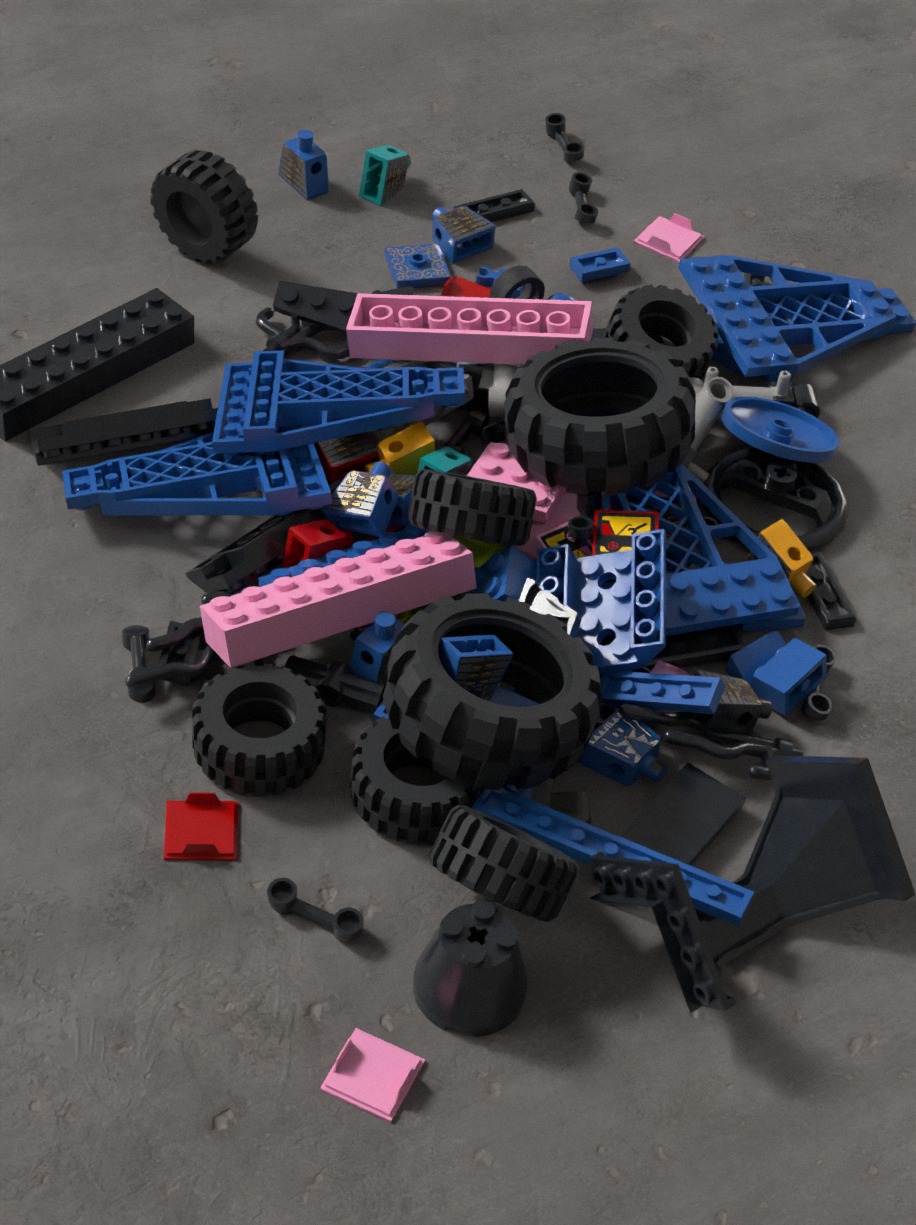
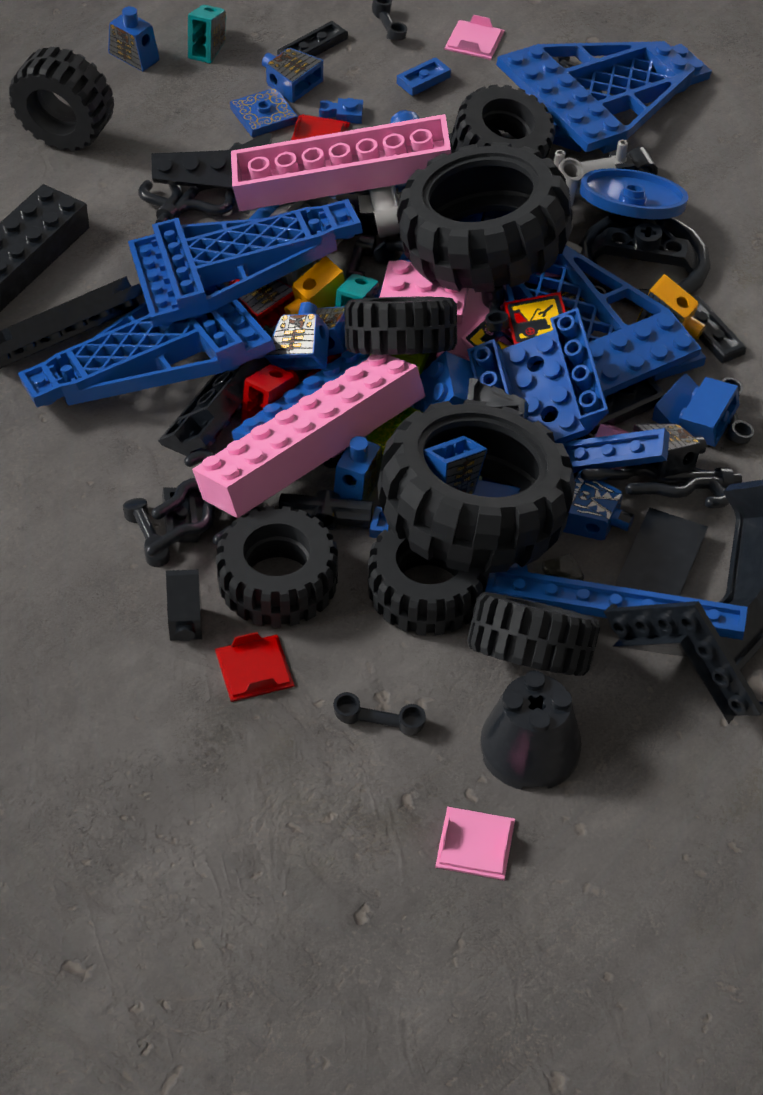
camera: 10 degrees left, 5 degrees up
(145, 745) = (184, 605): none -> black slope
(515, 278) = (356, 110): black tyre -> none

